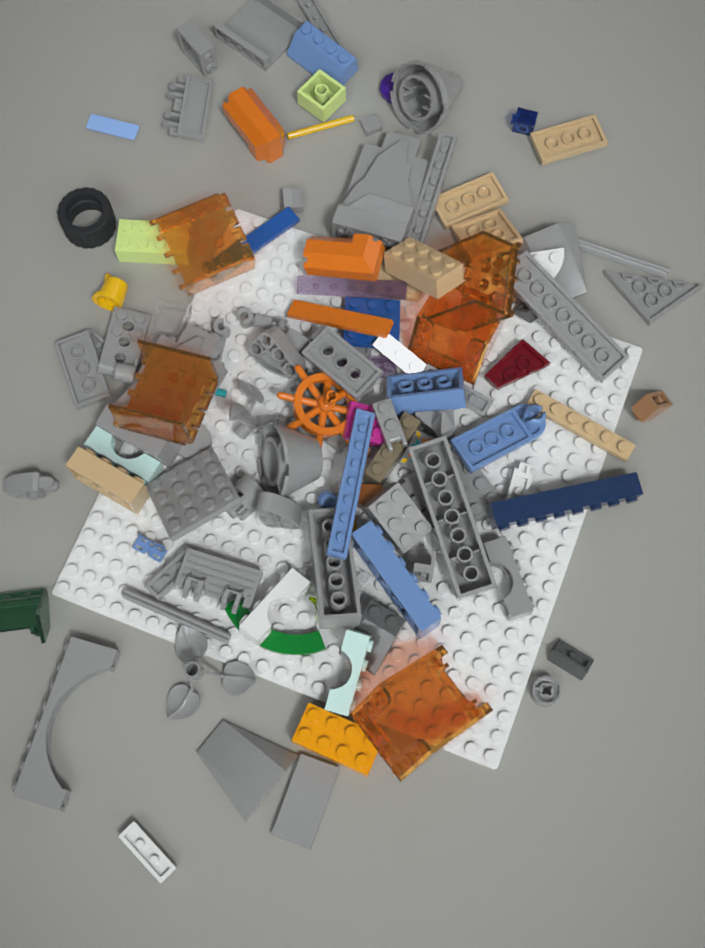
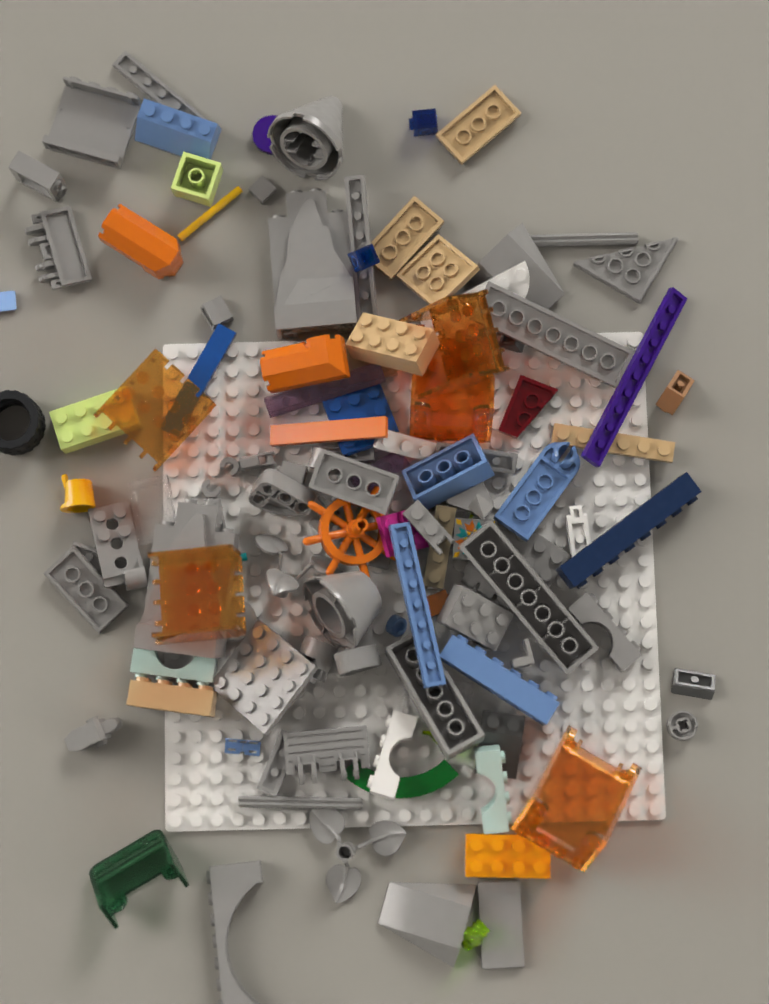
camera: 20 degrees left, 10 degrees up
(276, 798) = (474, 935): none -> clear neon green animal
(428, 195) = (363, 258): none -> clear blue brick
(619, 378) = (634, 377): none -> dark purple plate

